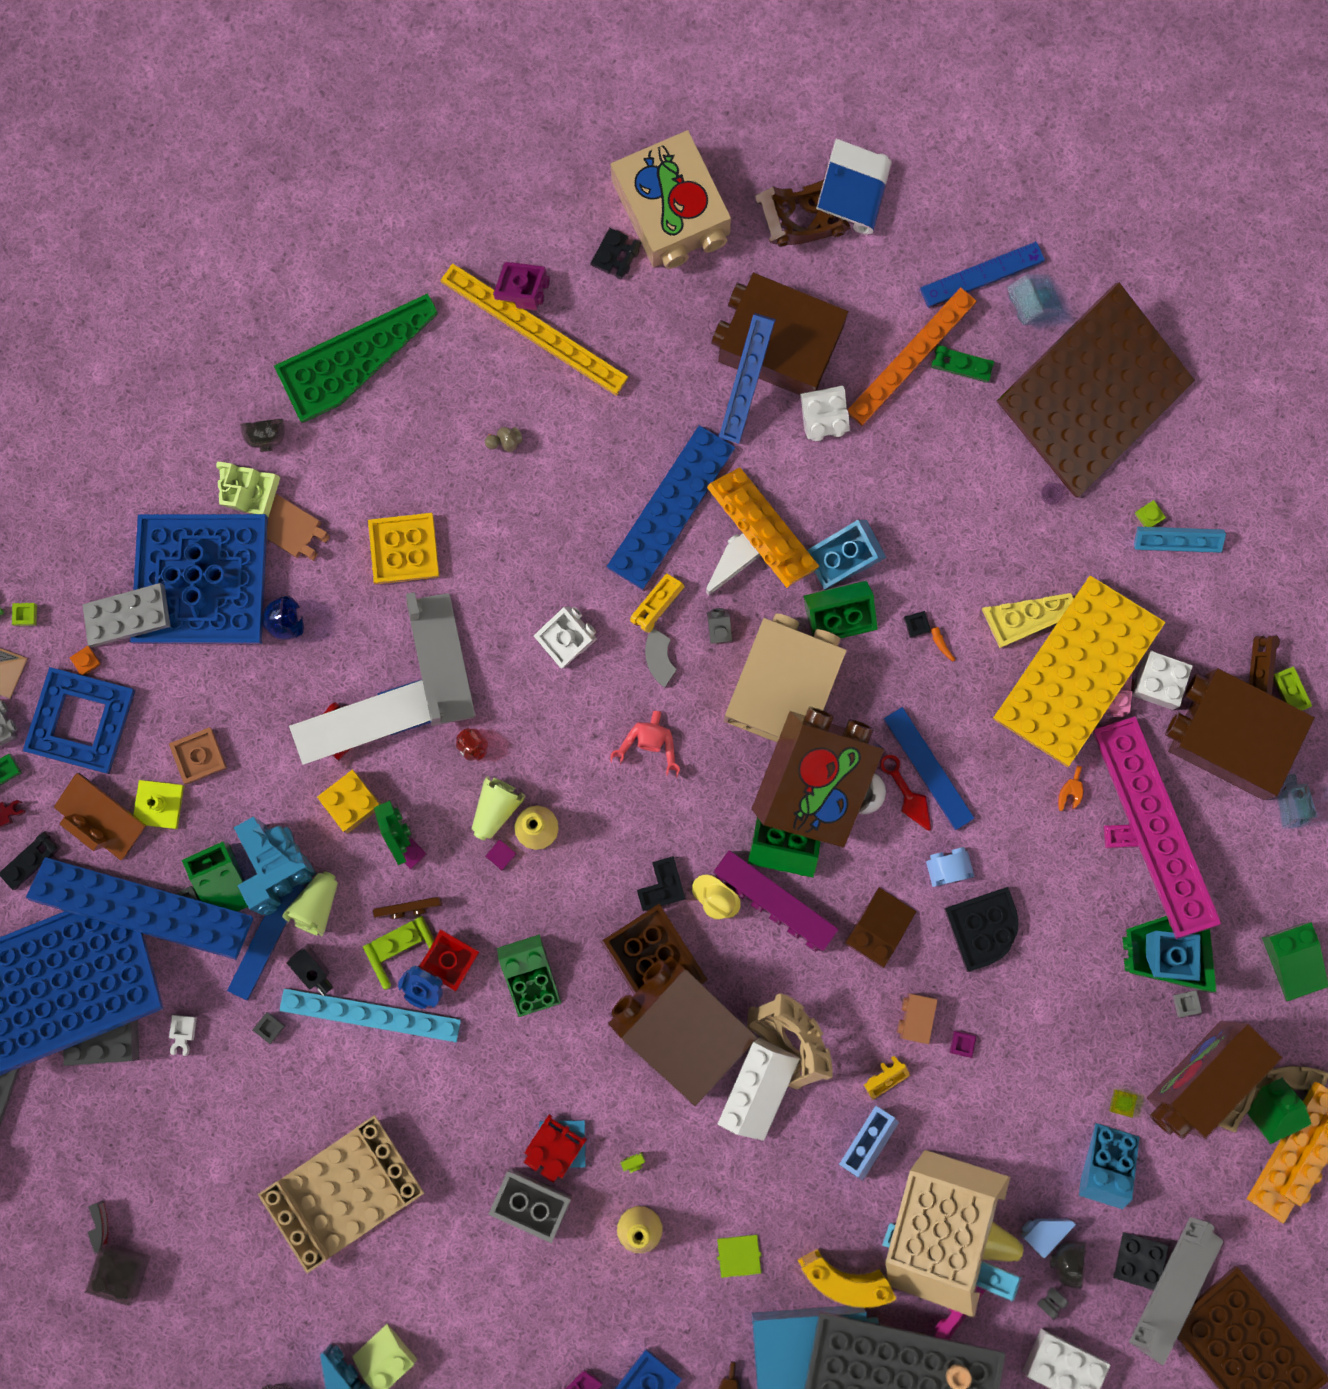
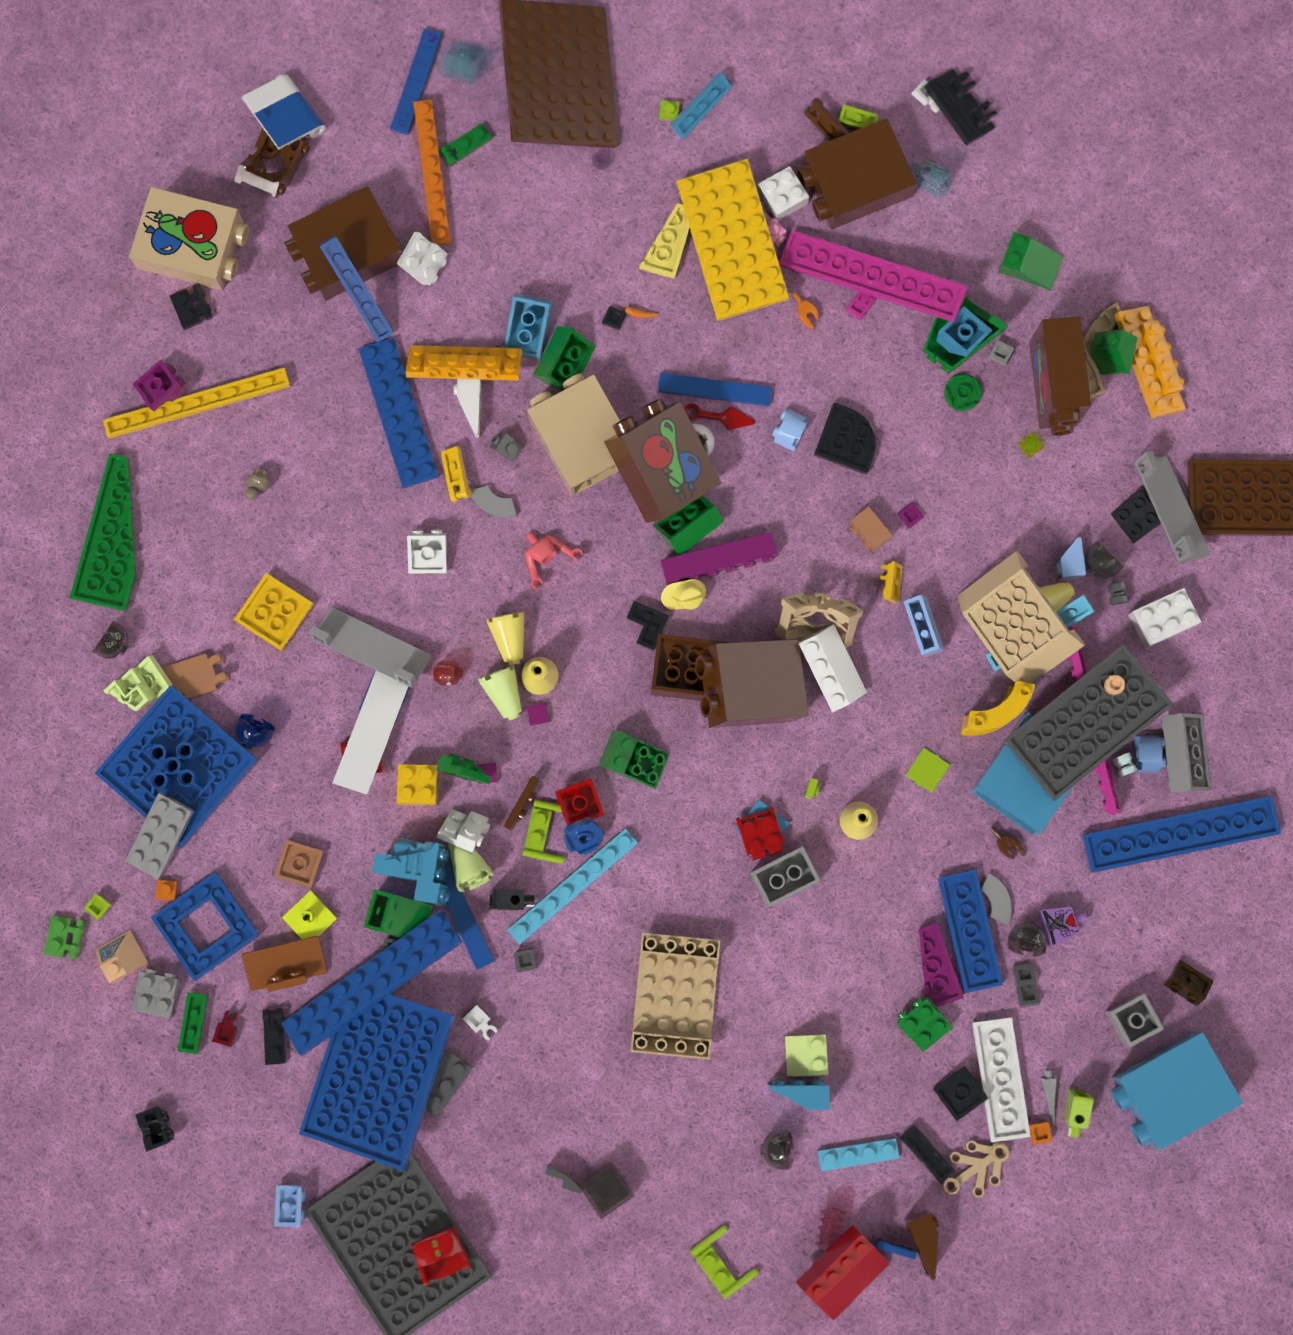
camera: 50 degrees left, 0 degrees up
(341, 876) = (464, 830): none -> white plate
(549, 770) = (509, 636): none -> light yellow cone
(880, 928) = (792, 506): reddish brown slope -> none
(1110, 1167) = (1063, 487): dark azure slope -> none
(1111, 997) = (964, 398): none -> green tile

